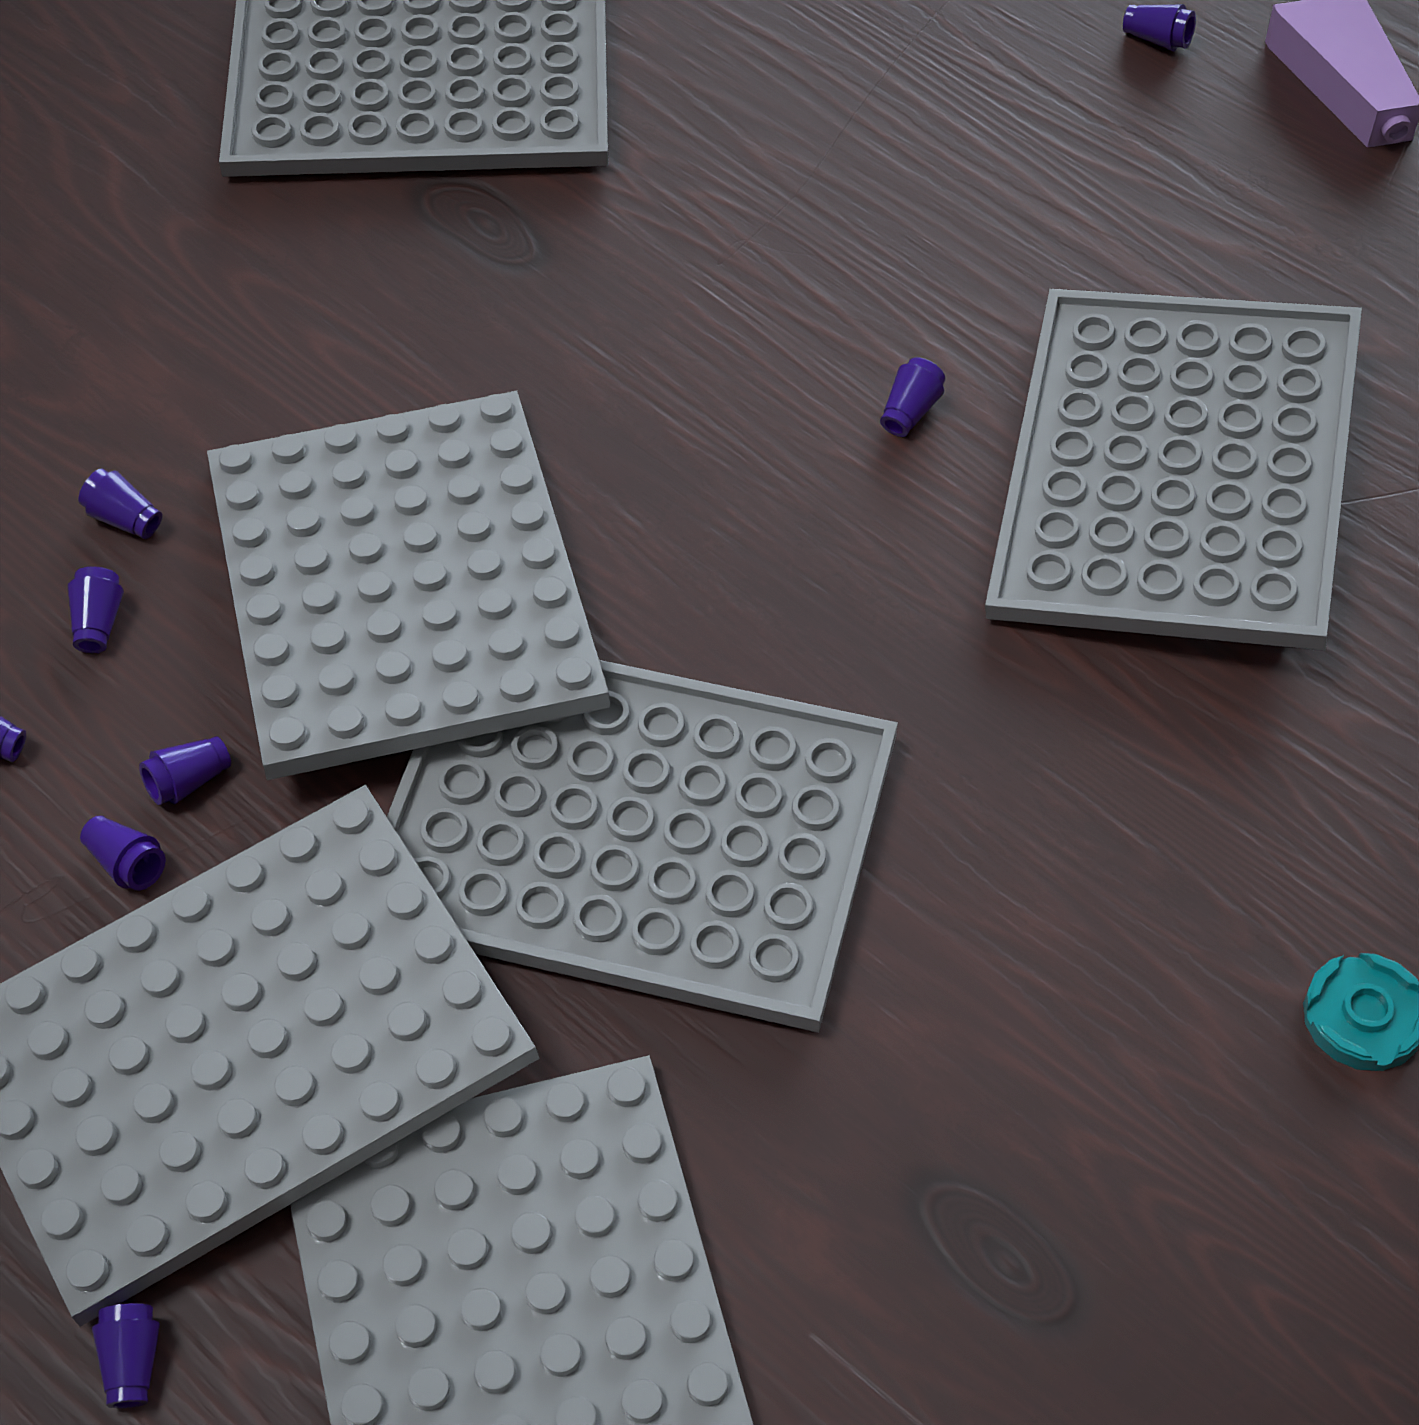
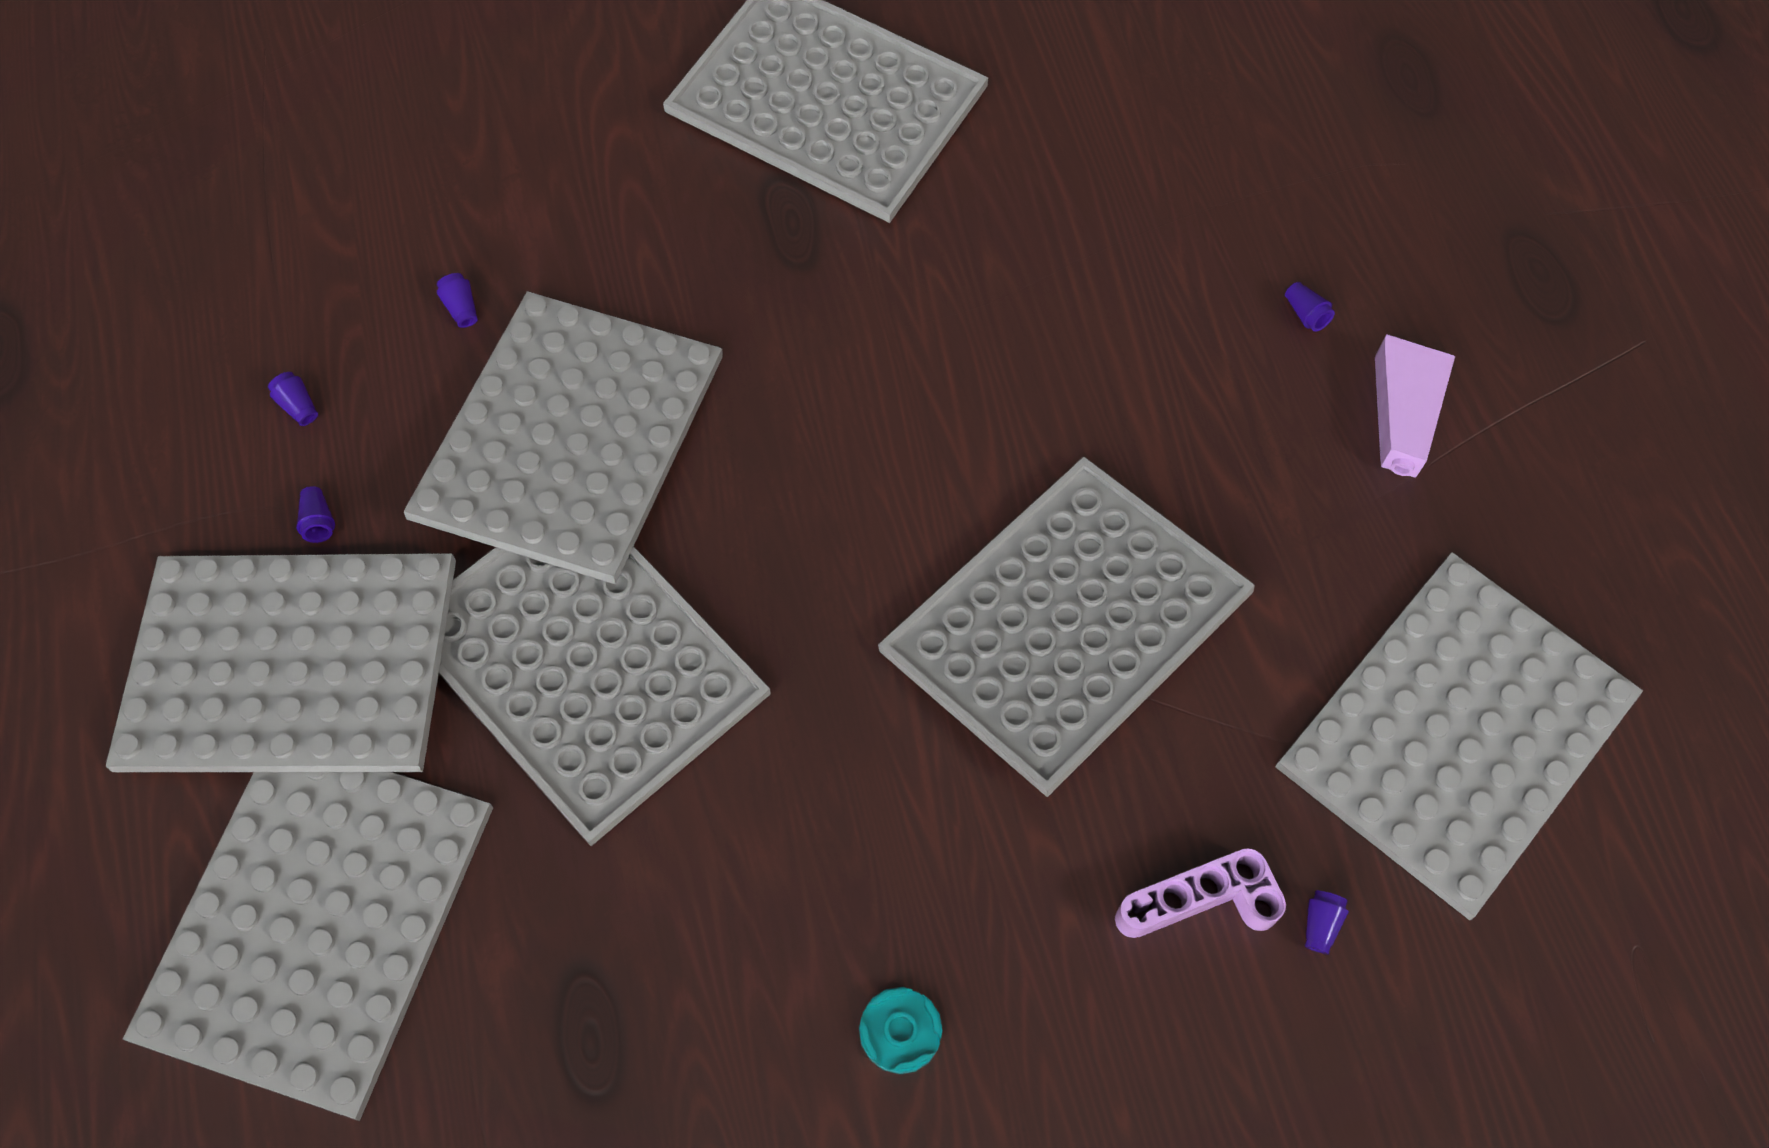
camera: 30 degrees right, 10 degrees up
(93, 607) = (400, 357): dark purple cone -> none
(126, 1352) = (122, 801): dark purple cone -> none
(182, 769) = (377, 484): dark purple cone -> none
(913, 393) = (945, 481): dark purple cone -> none

